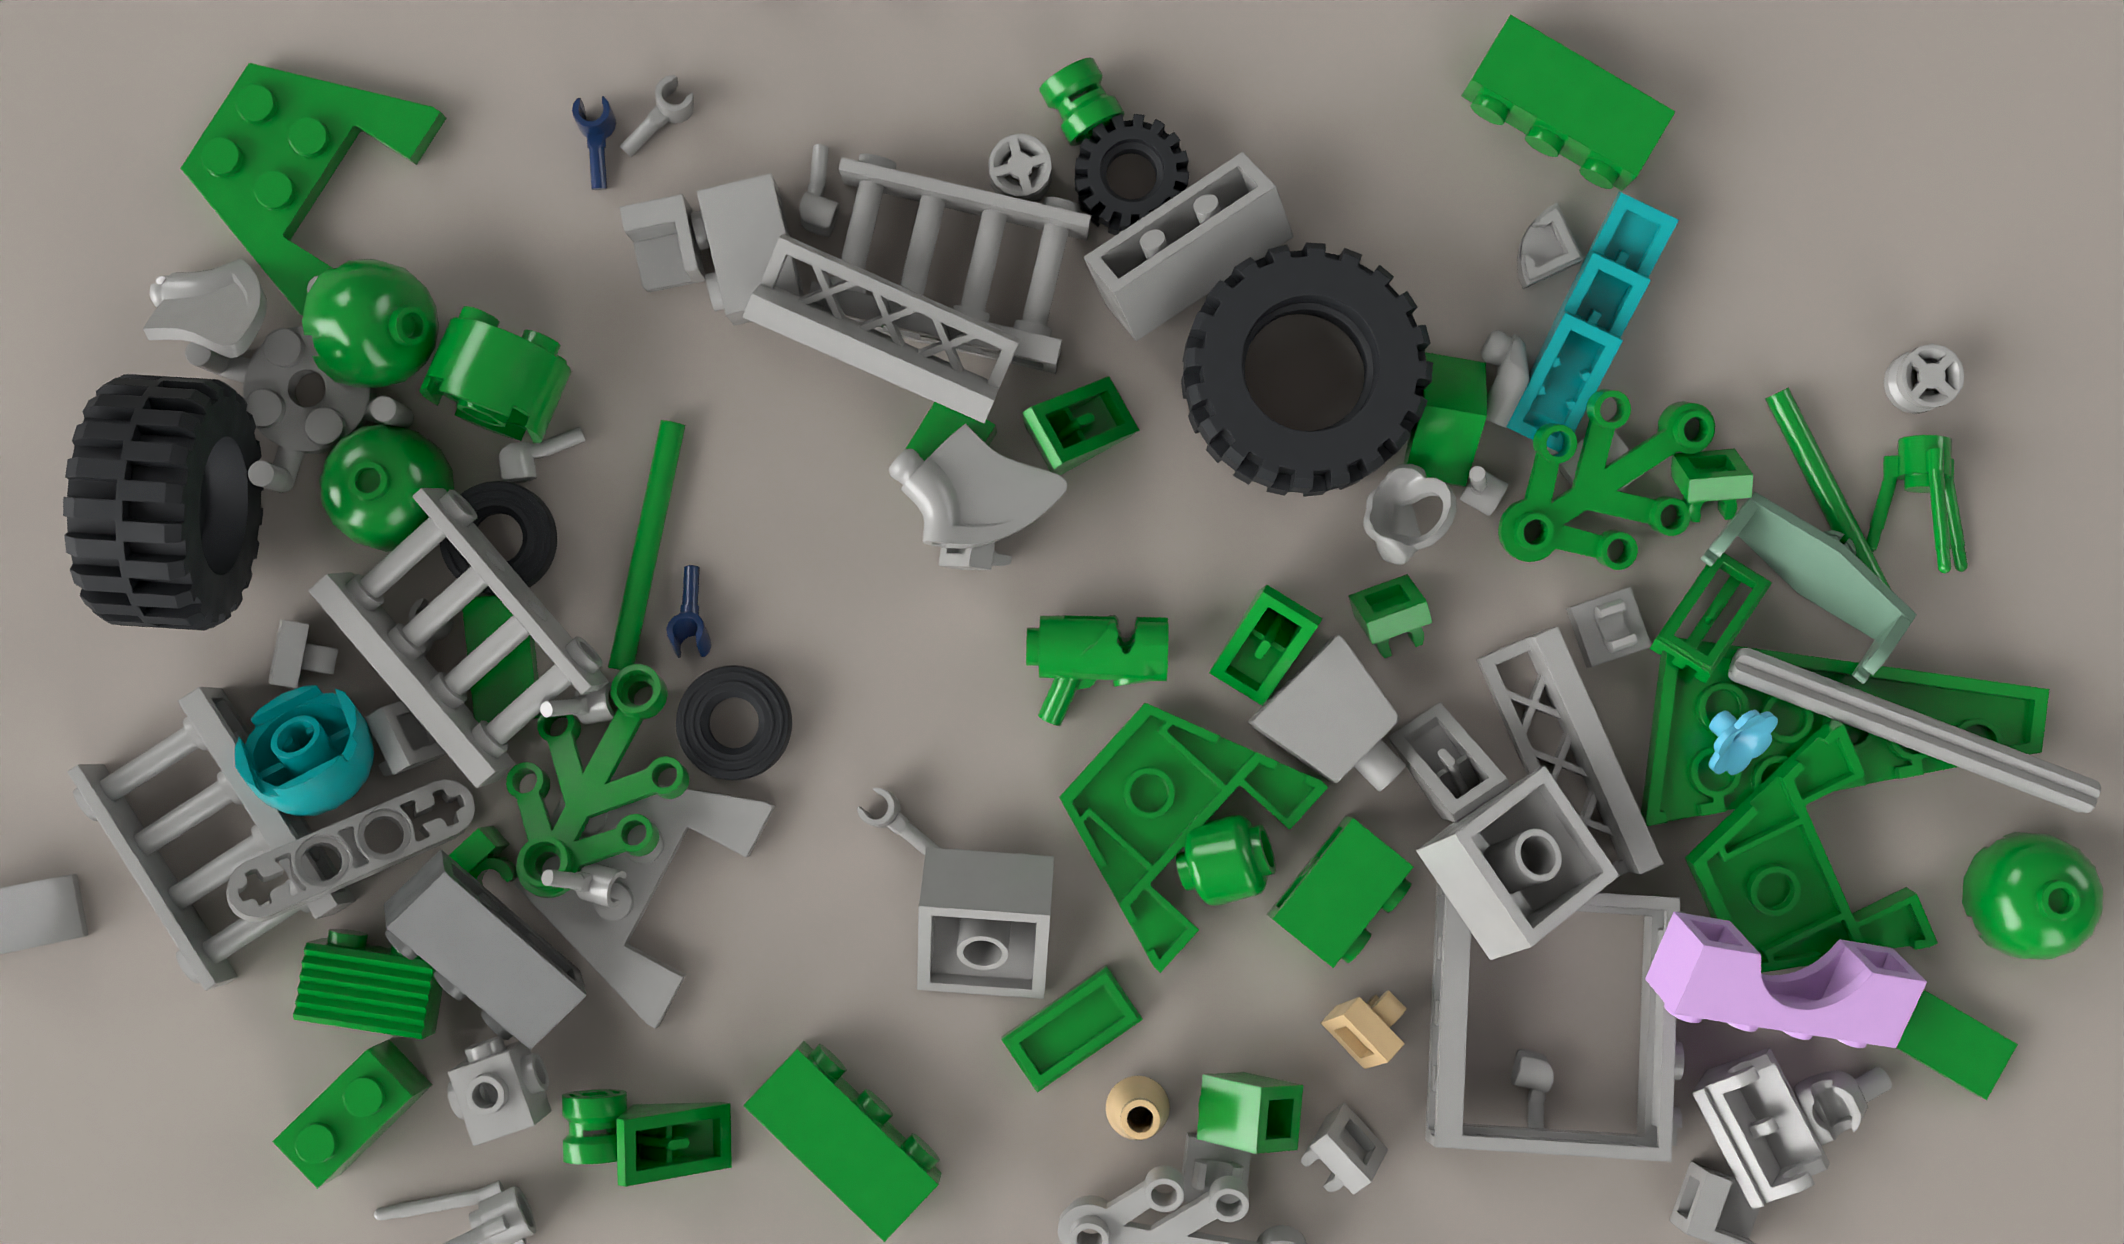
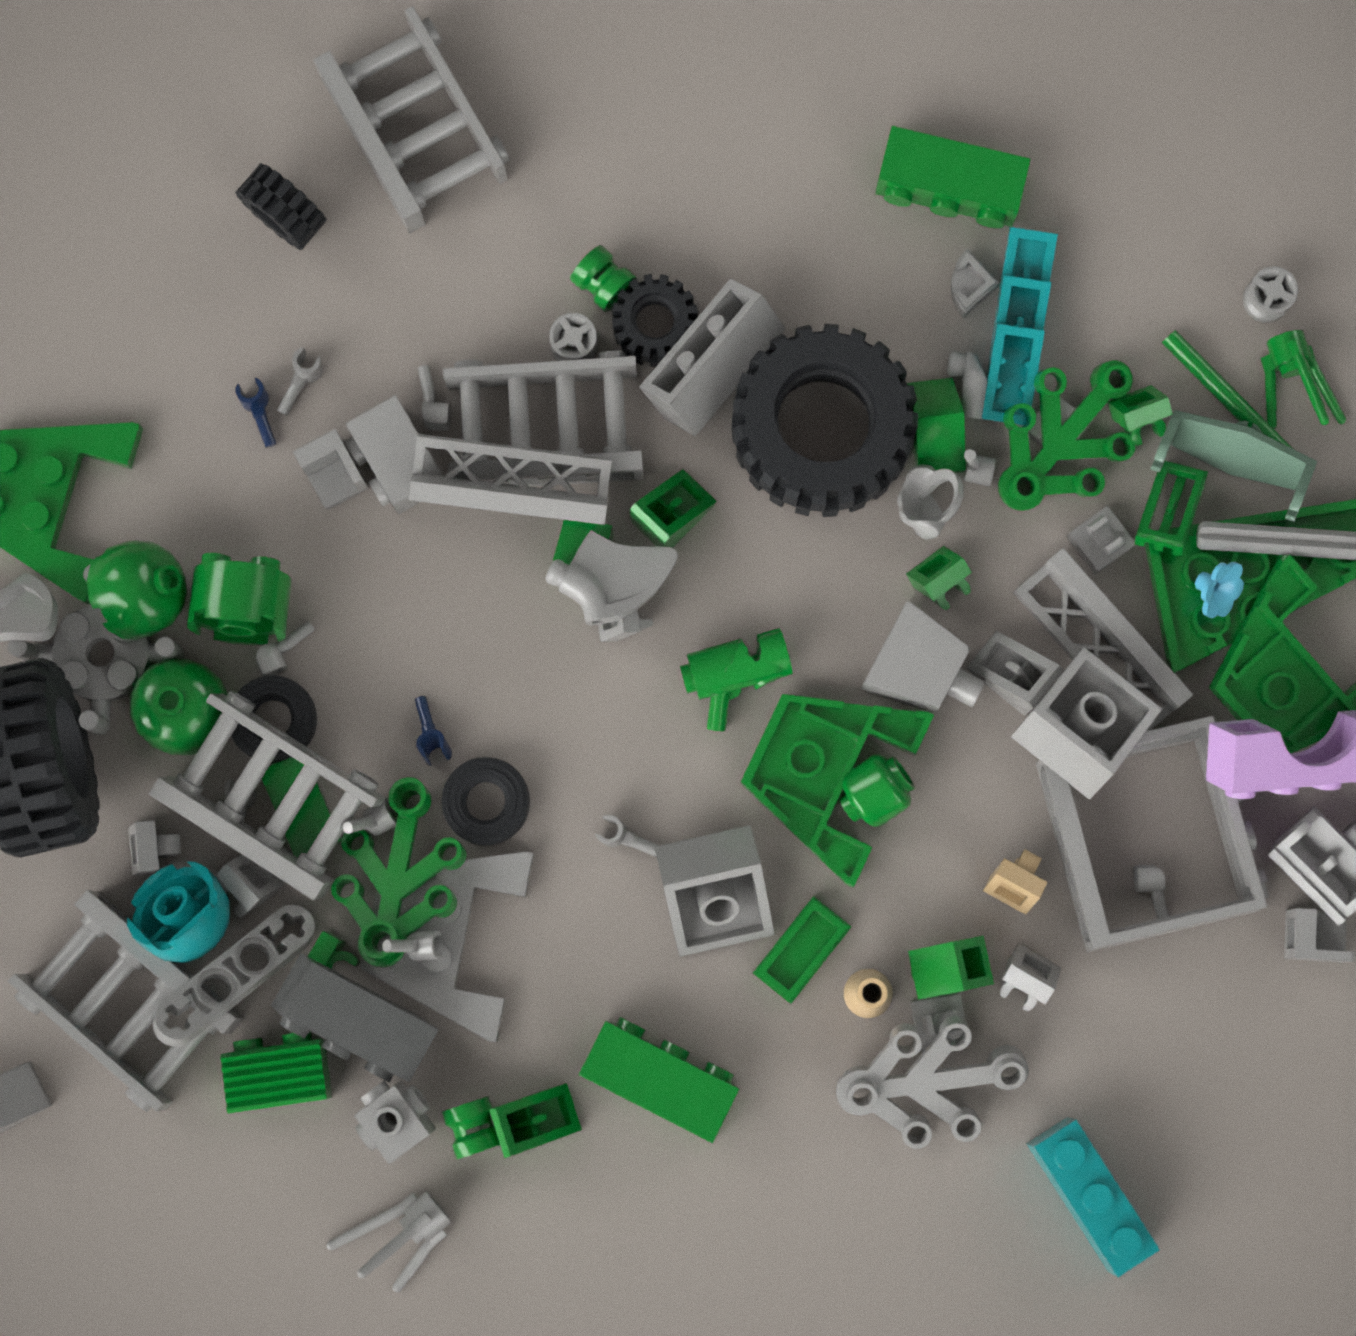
camera: 10 degrees left, 5 degrees down
(352, 1113) = (290, 1172): green brick -> none
(646, 545) = (382, 691): green bar -> none
(1264, 644) = (856, 625): green slope -> none
(1342, 892) = (968, 788): green brick -> none

